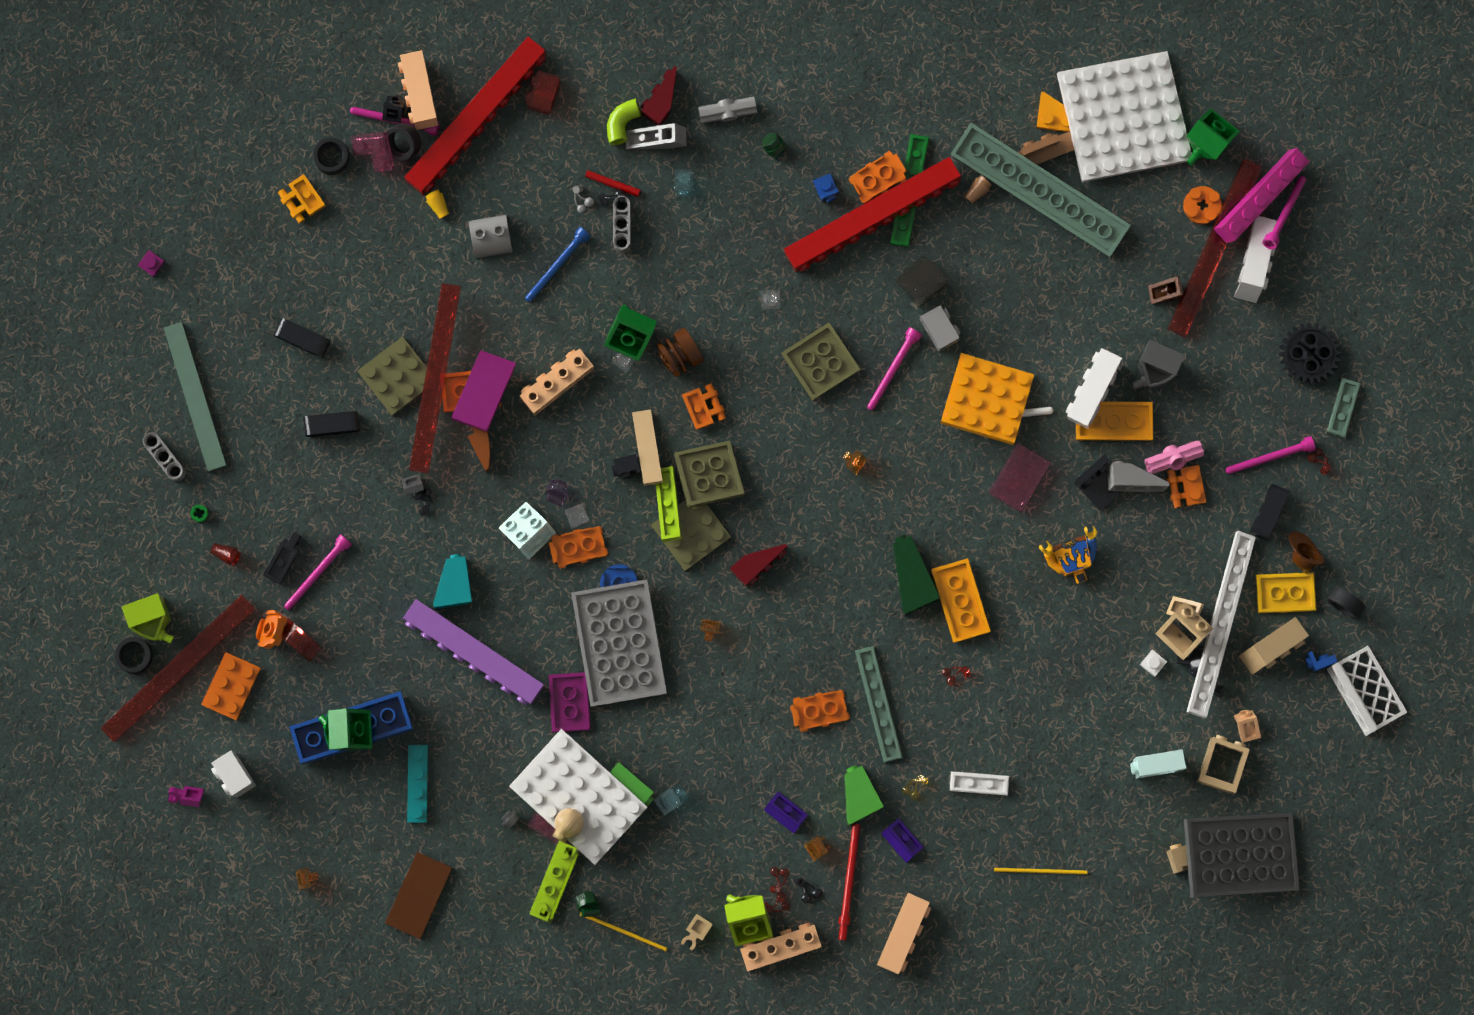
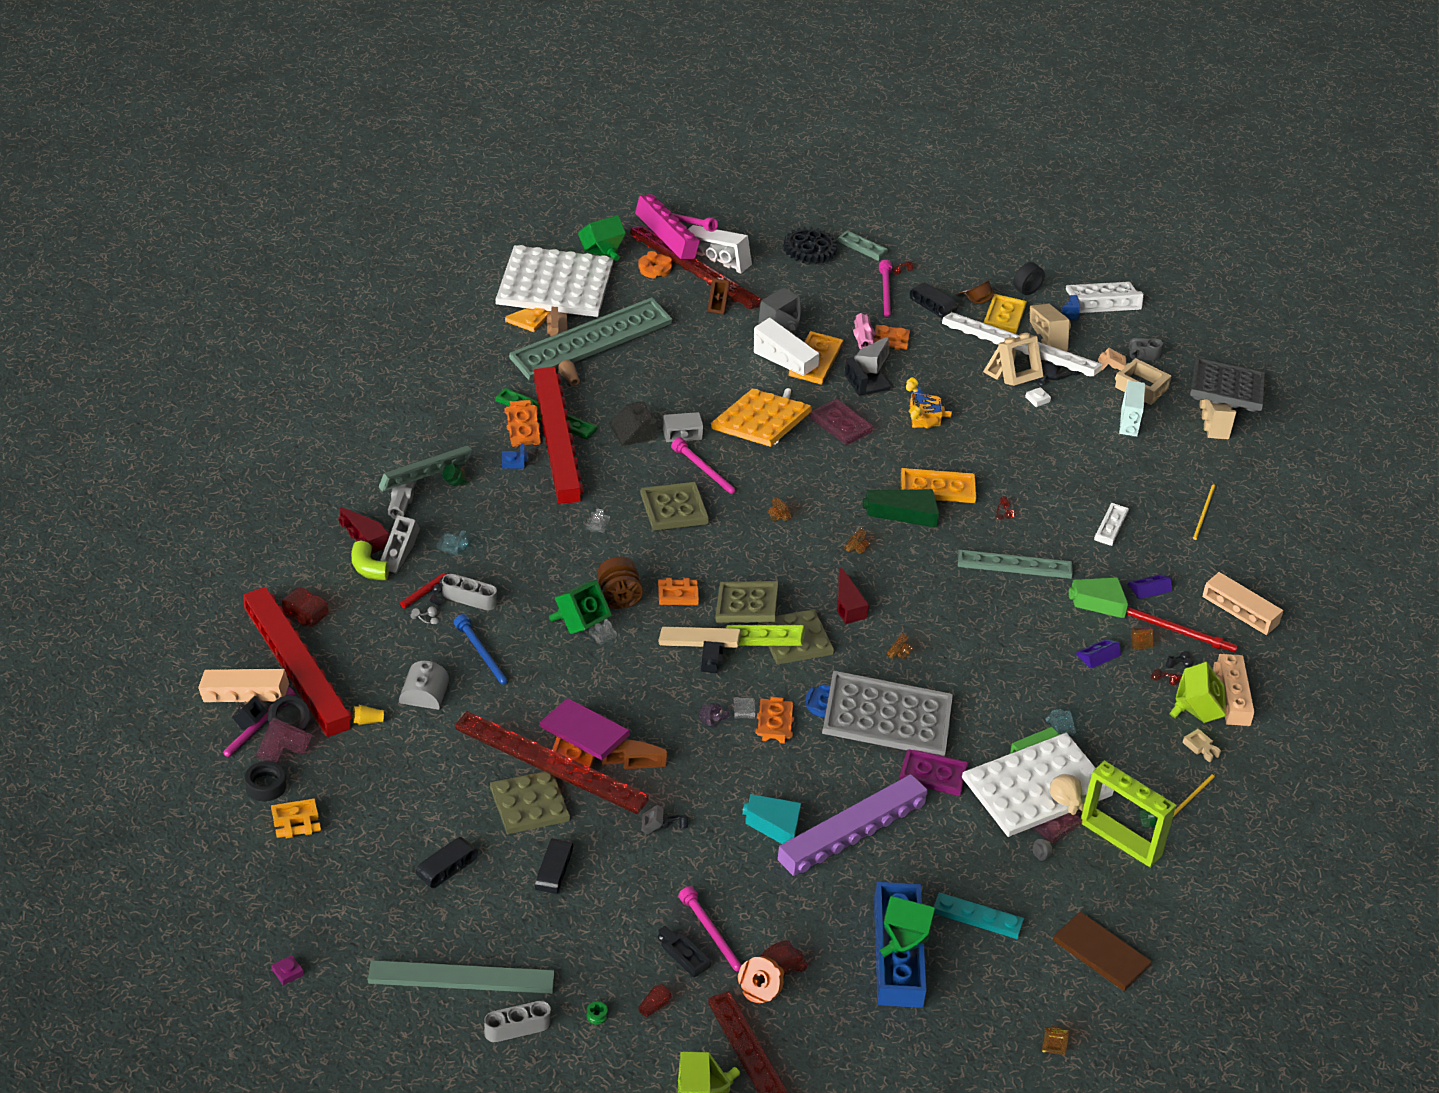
camera: 75 degrees left, 40 degrees down
(231, 686) = (808, 1045): orange plate -> none
(233, 774) = (915, 1061): white brick -> none
(527, 530) = (739, 746): light aqua bracket -> none
(556, 382) = (600, 681): light nougat brick -> none
(759, 118) = (424, 468): none -> sand green tile
(819, 710) = (1006, 602): orange piece -> none
(841, 545) = (857, 541): none -> clear orange tile
(914, 795) = (1108, 565): clear yellow piece -> none
(1282, 753) = (1147, 348): none -> dark grey piece

